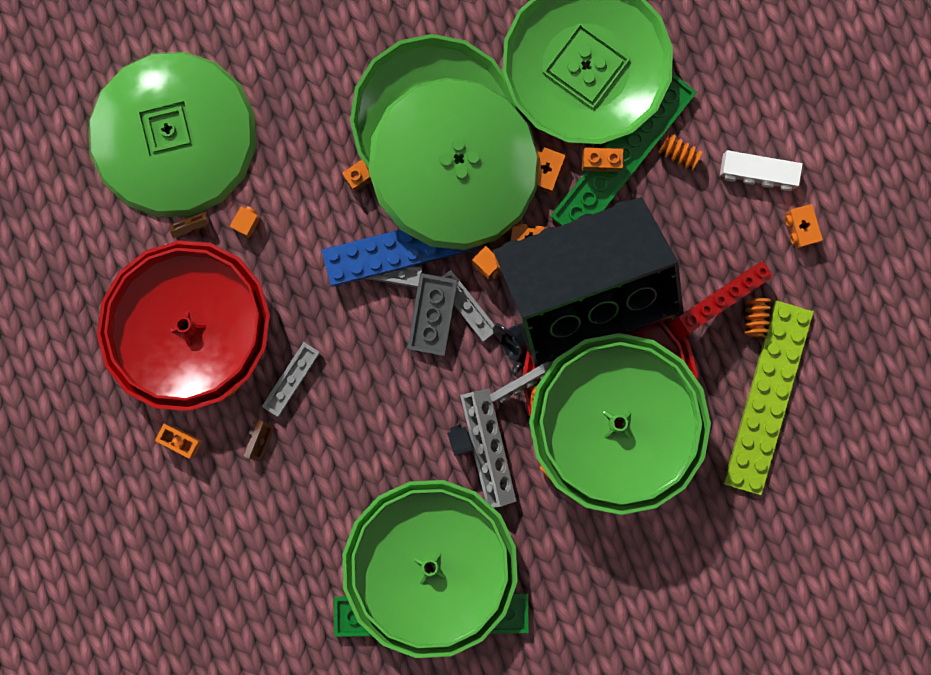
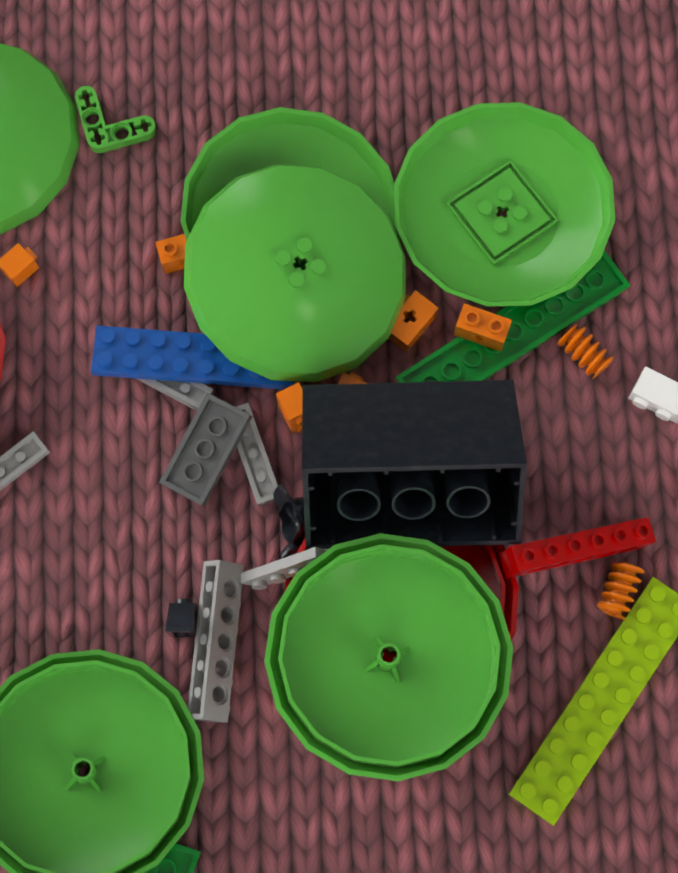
camera: 25 degrees right, 10 degrees down
(273, 97) = (108, 132): none -> bright green beam

